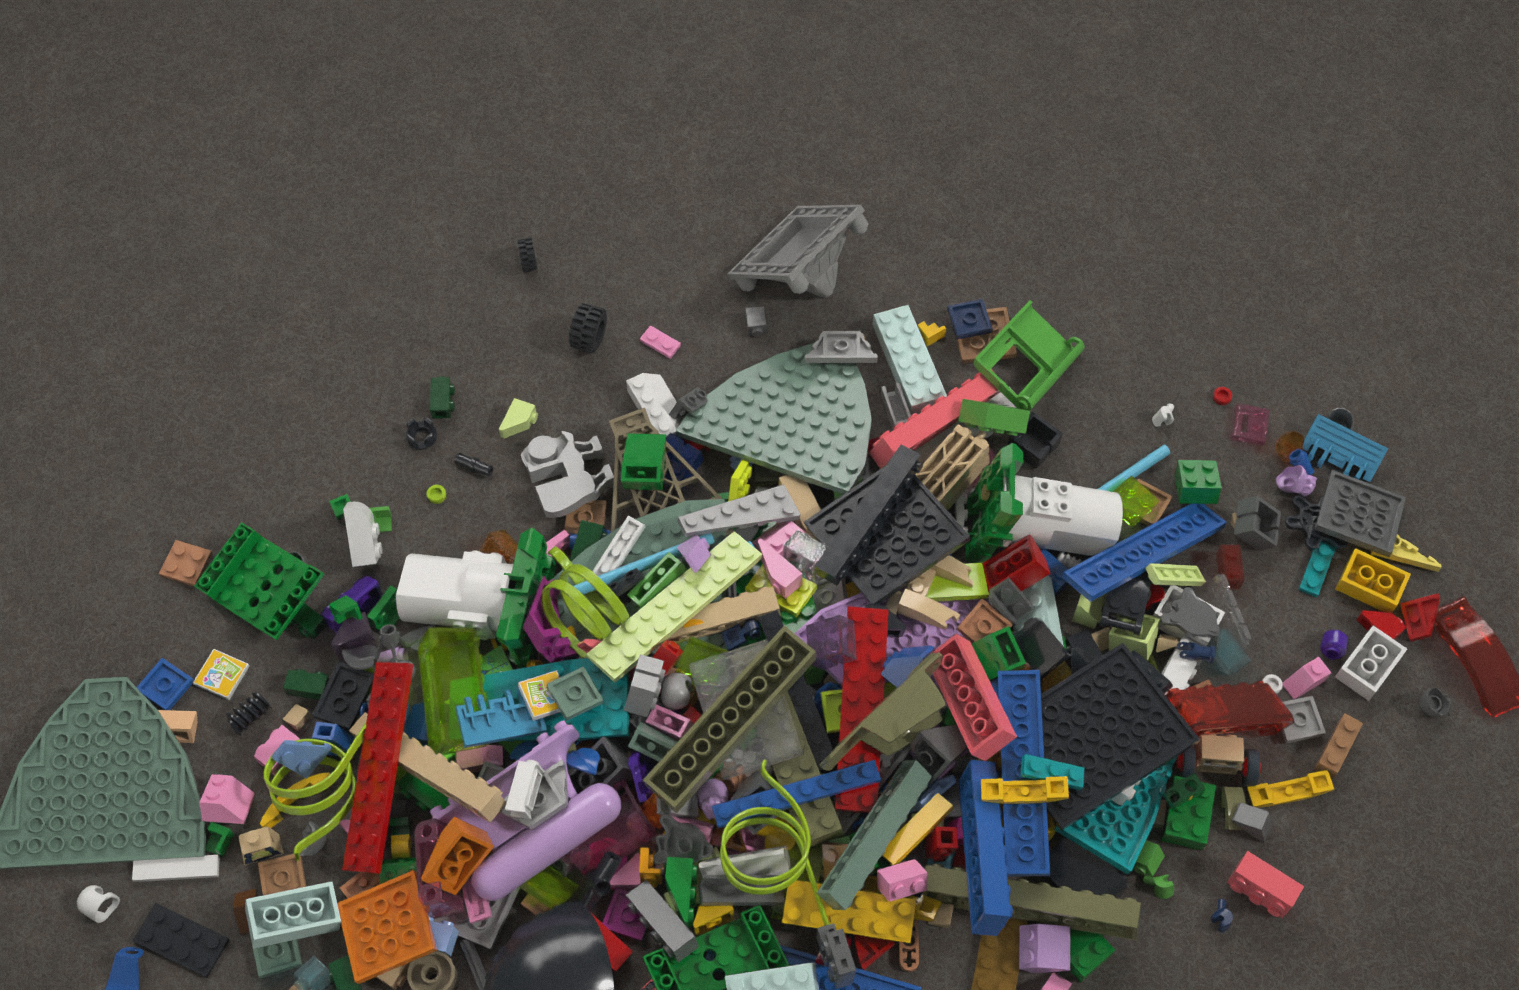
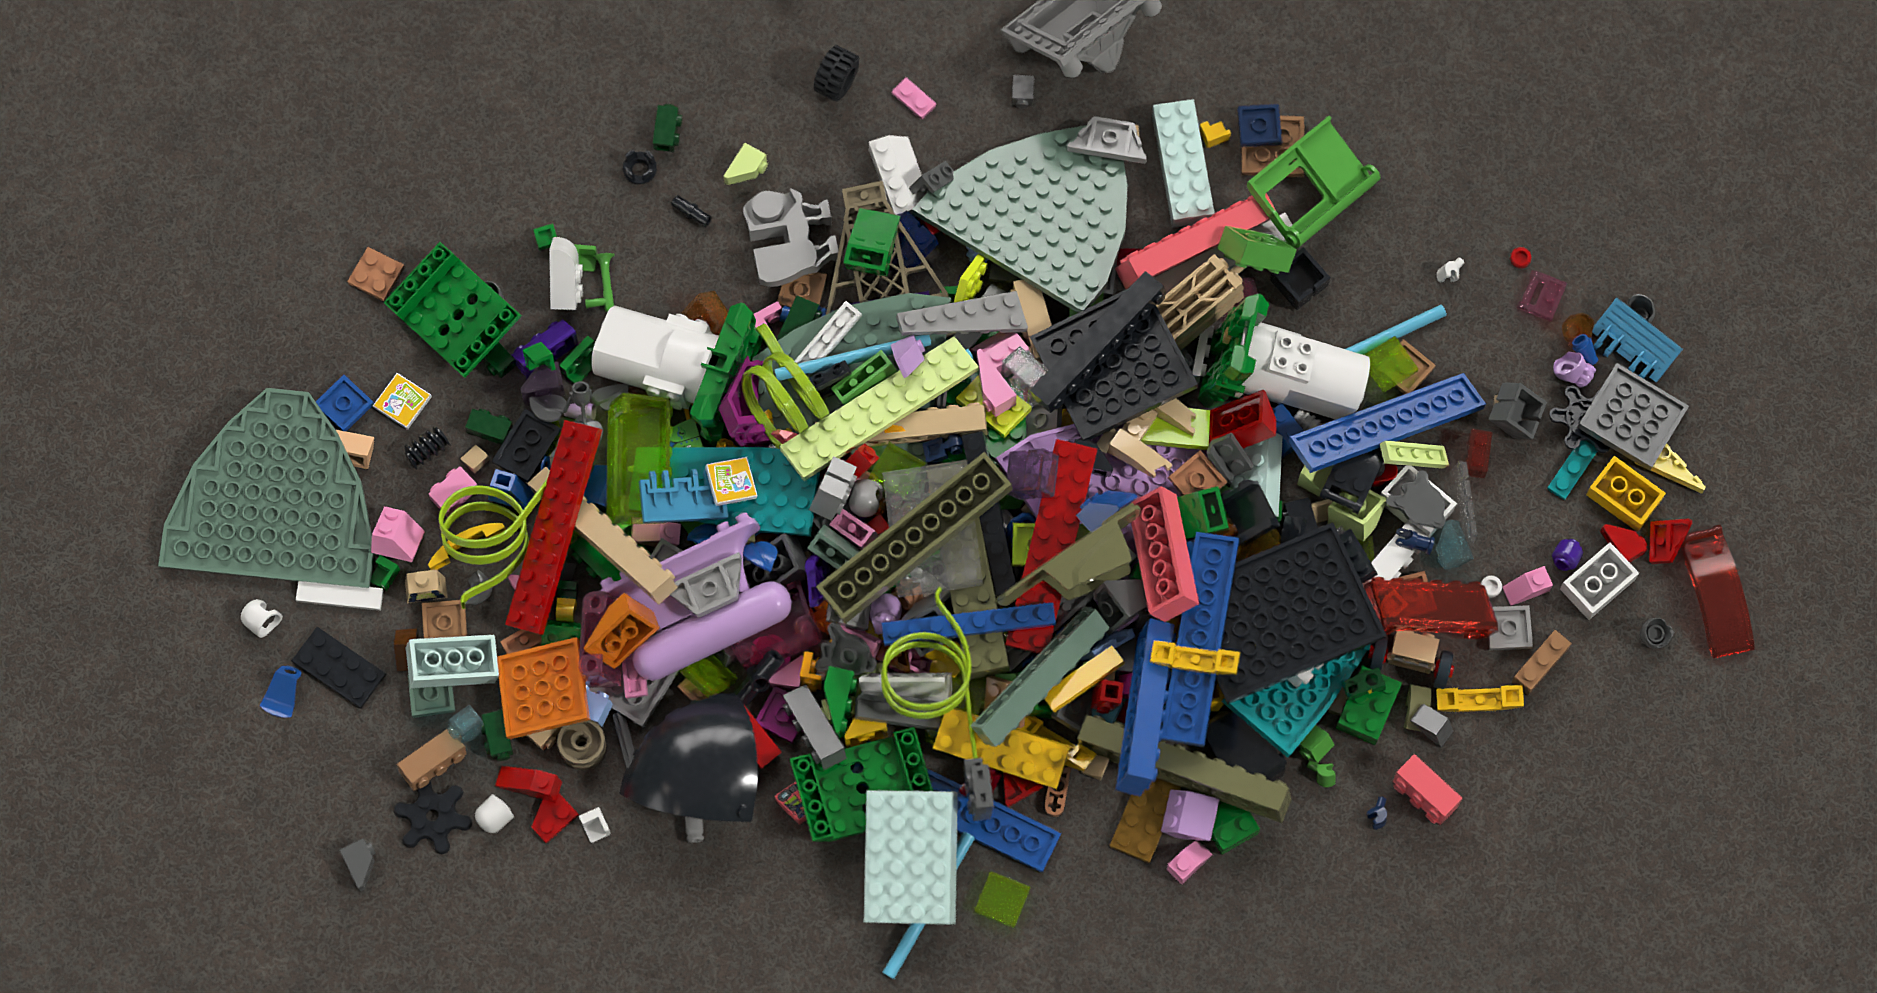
camera: 10 degrees right, 10 degrees up
(301, 756) = (477, 504): medium blue wing -> none
(398, 518) = (607, 301): none -> bright green piece
(436, 494) = (647, 238): lime tile -> none
(524, 789) = (697, 576): white window -> none
(574, 693) = (761, 485): sand green plate -> none
(895, 405) = (1157, 216): light grey window -> none
(902, 880) = (1058, 726): bright pink brick -> none
(1040, 768) = (1215, 638): teal plate -> none
(1166, 642) = (1389, 524): tan slope -> none
(1197, 481) = (1466, 353): green brick -> none

